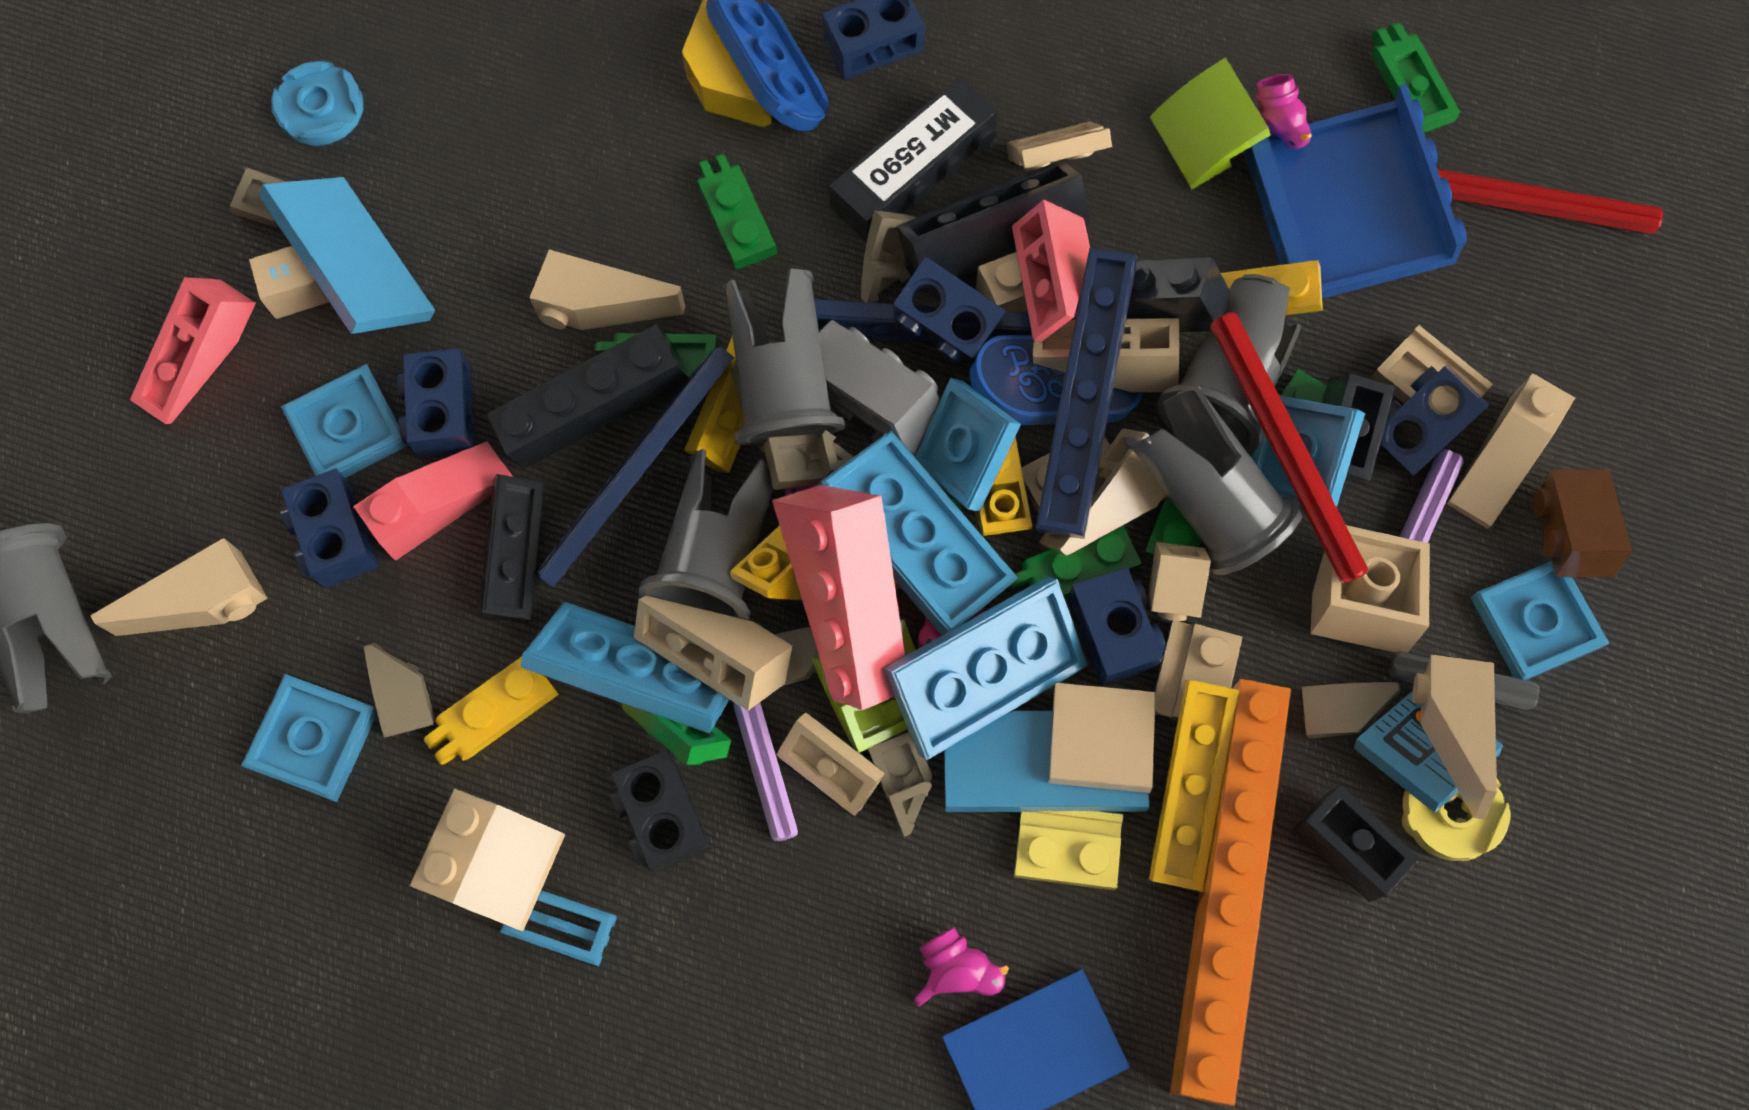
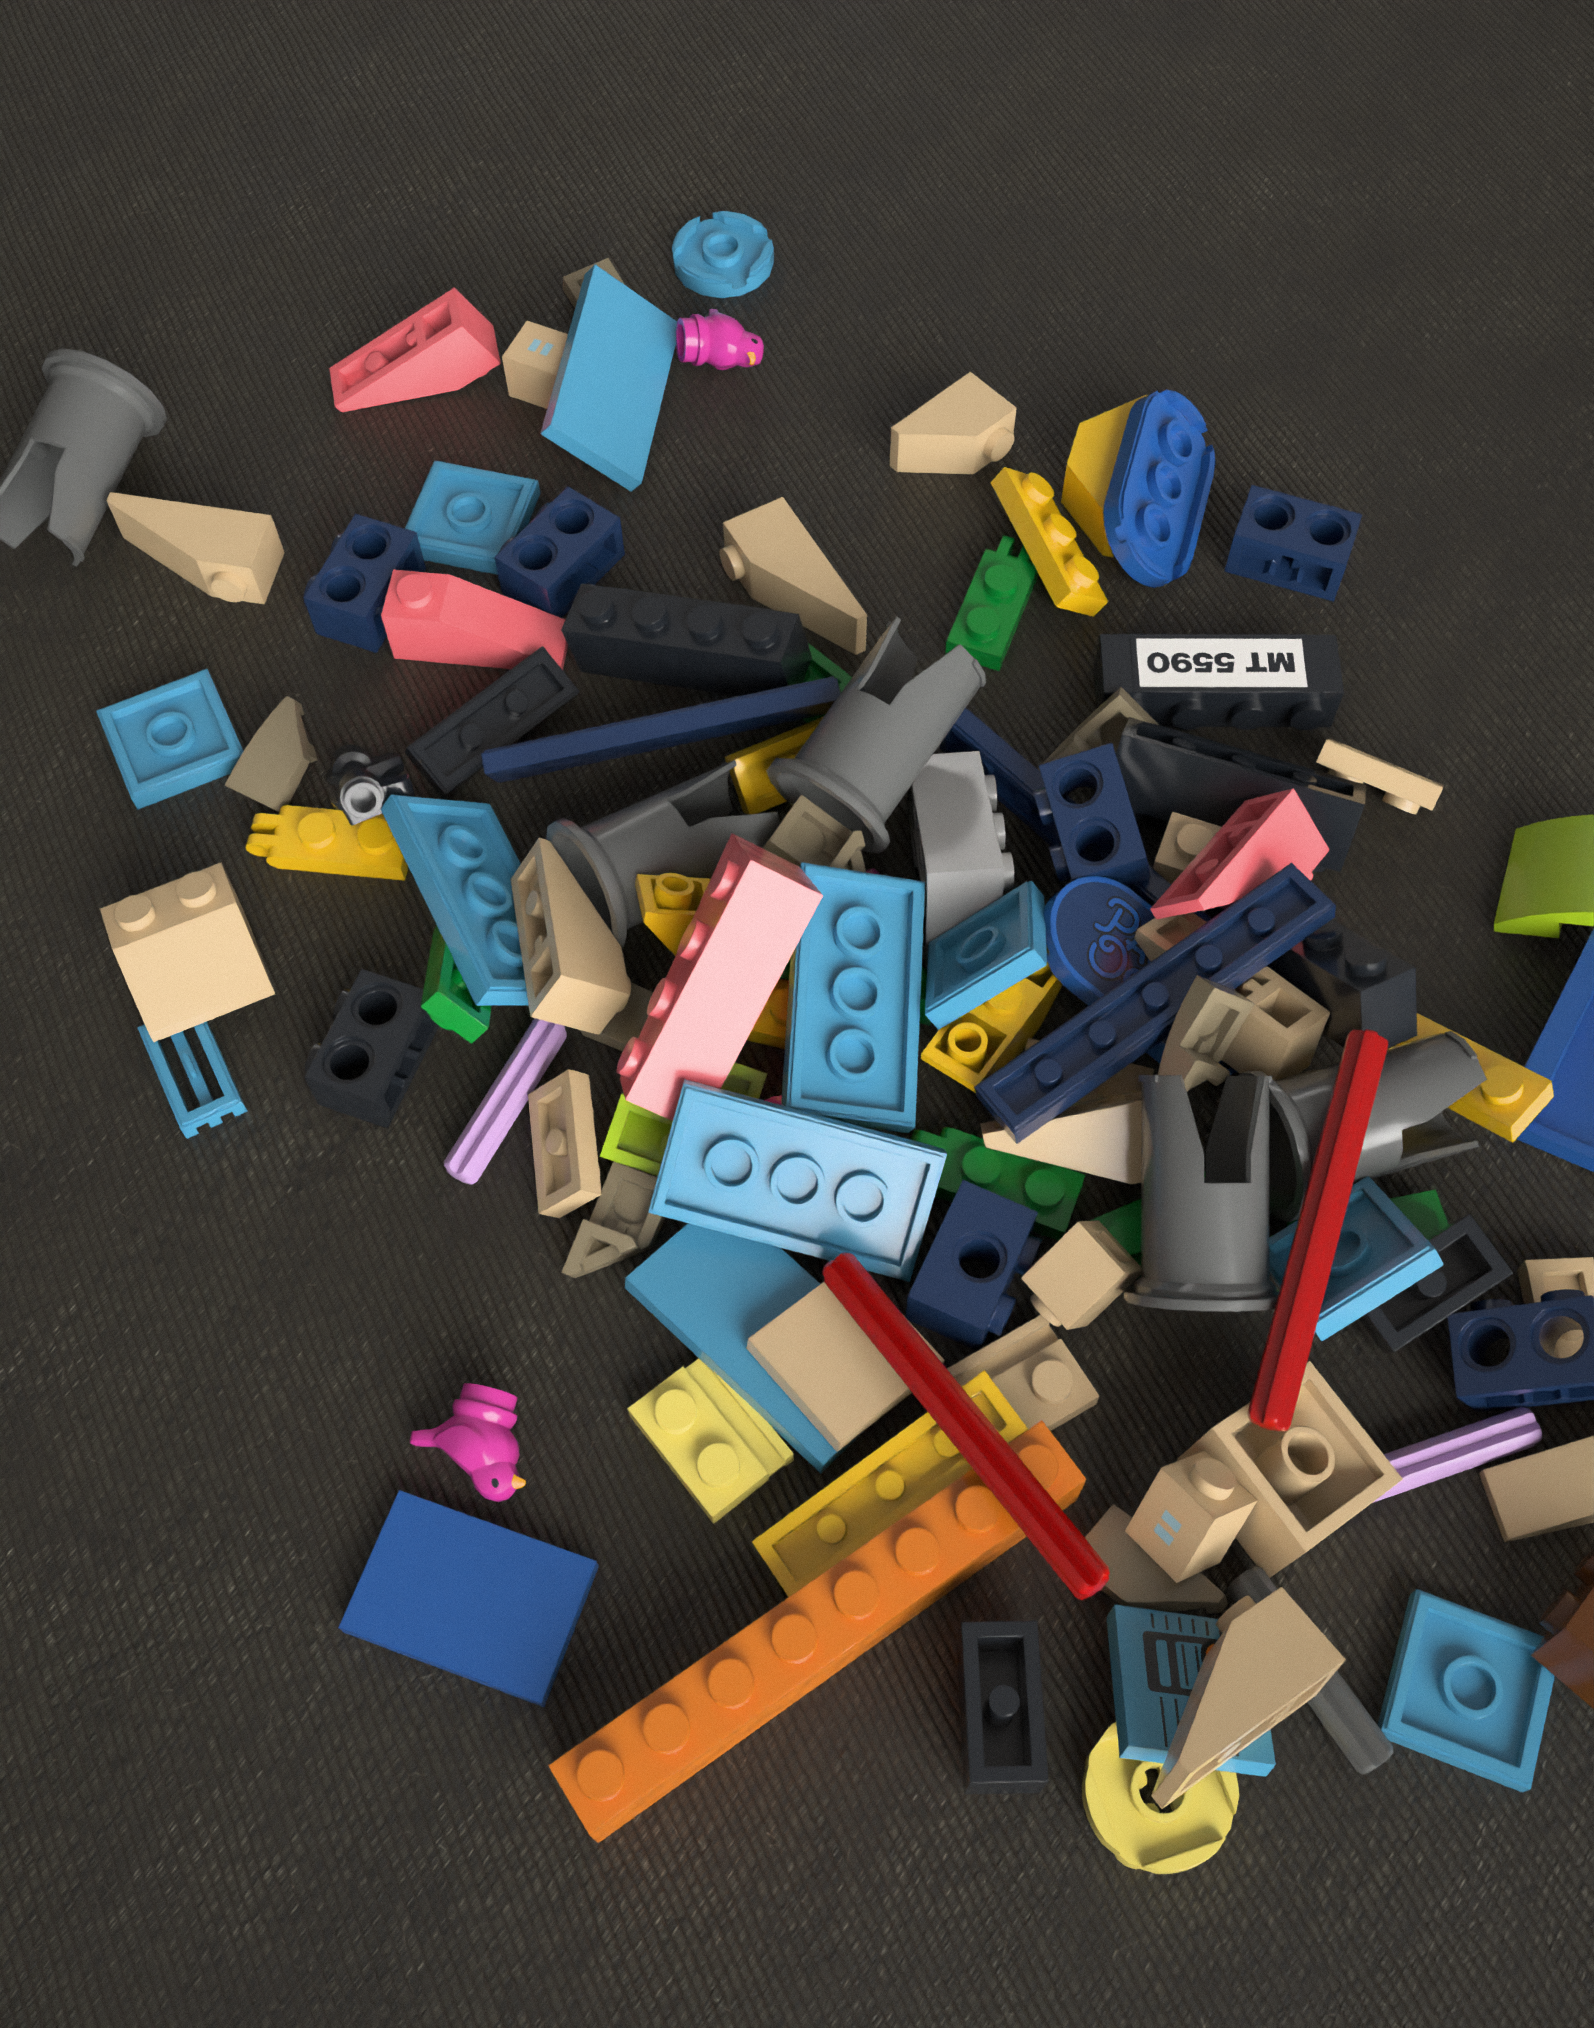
camera: 45 degrees right, 10 degrees down
(384, 171) = (717, 341): none -> dark pink animal
(496, 668) = (365, 781): none -> black piece
(603, 113) = (954, 431): none -> tan slope
(731, 144) = (1049, 541): none -> yellow plate
(1129, 391) = (1203, 1033): none -> dark tan slope
(1209, 718) = (968, 1428): none -> red axle
(1354, 658) = (1190, 1515): none -> tan brick

